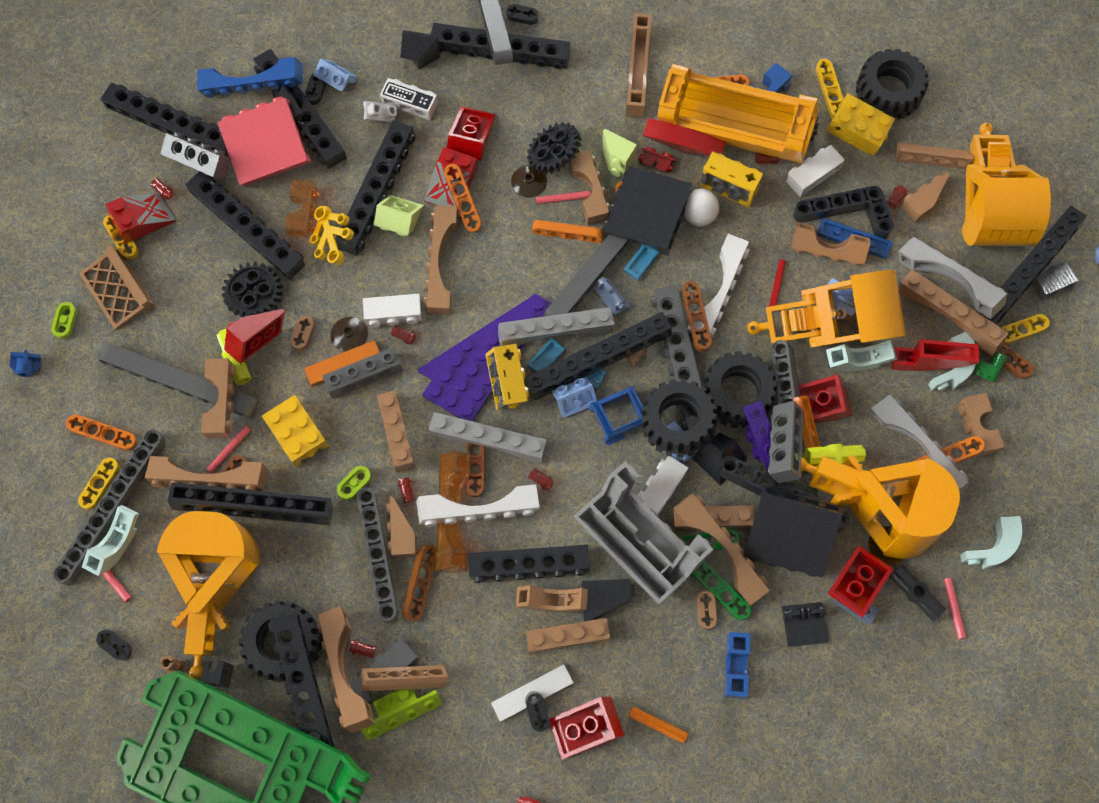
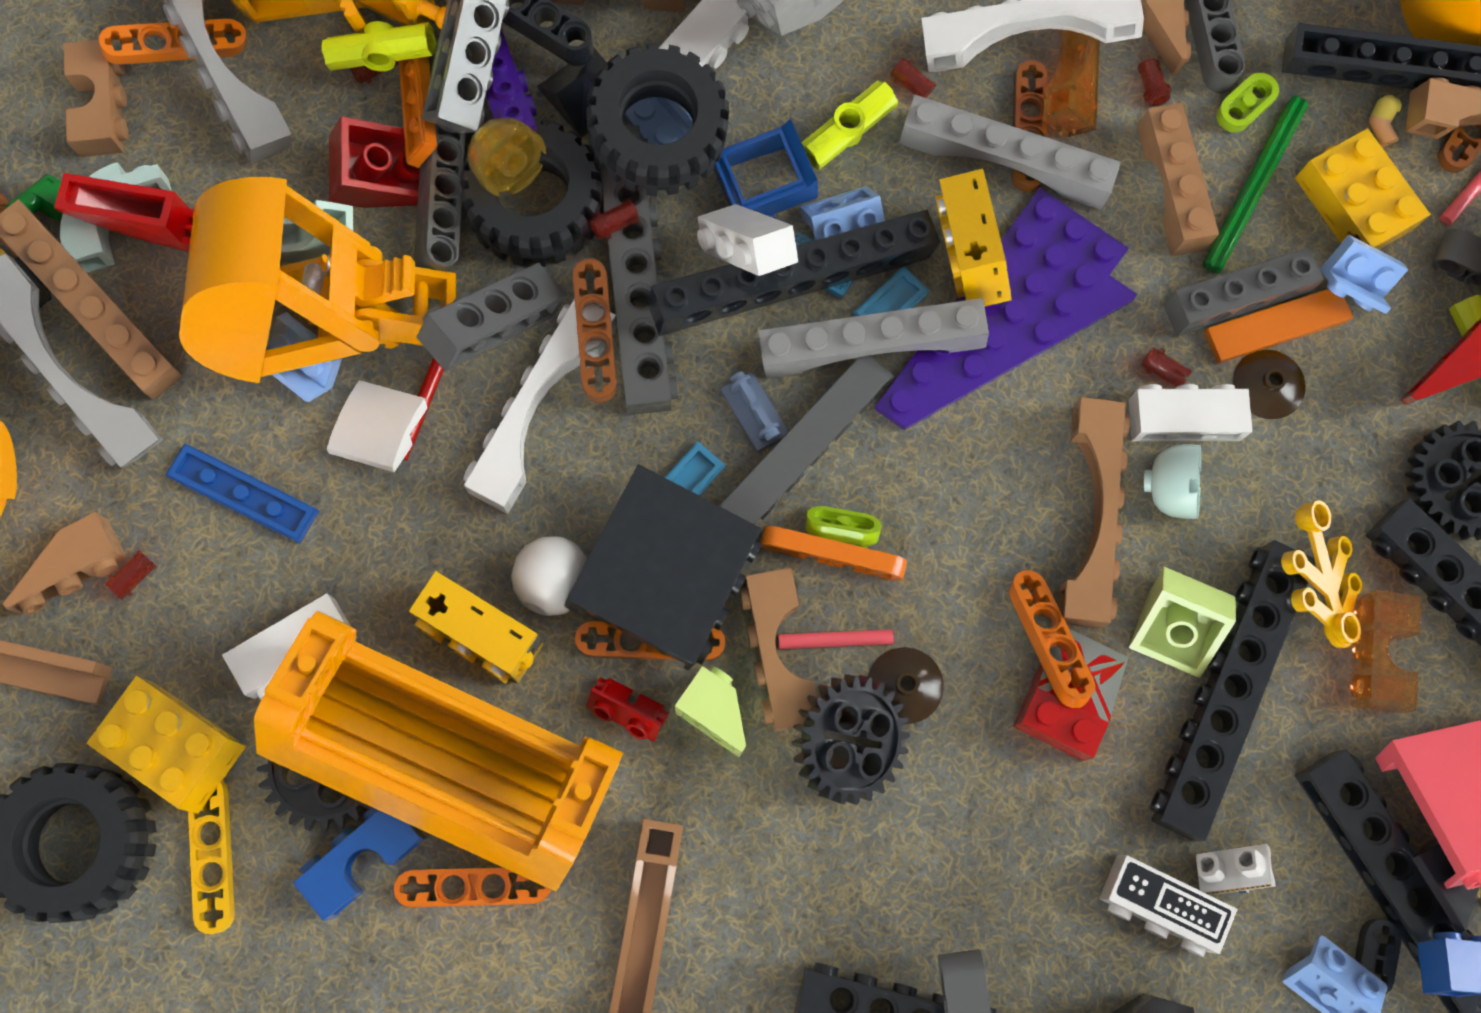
camera: 175 degrees right, 5 degrees up
(278, 481) = (1381, 119): none -> arm
(300, 382) = (1362, 273): none -> light blue bracket
(306, 334) = (1352, 387): medium nougat beam -> none
(350, 439) = (1255, 184): none -> green axle
(400, 274) = (1176, 481): none -> light aqua cylinder
(470, 132) = (1030, 808): red slope -> none
(563, 245) = (843, 525): none -> lime plate
(566, 455) = (862, 112): none -> neon yellow piece
(626, 355) = (747, 239): none -> white brick
(683, 138) = (572, 721): red slope -> none
(695, 371) = (613, 220): none -> clear red pin
(726, 335) = (490, 315): none -> dark grey brick
(757, 385) = (505, 155): none -> clear yellow cylinder
(796, 269) = (376, 426): none -> white slope
(847, 204) = (240, 558): black beam -> none
(853, 249) = (256, 457): medium nougat arch -> none

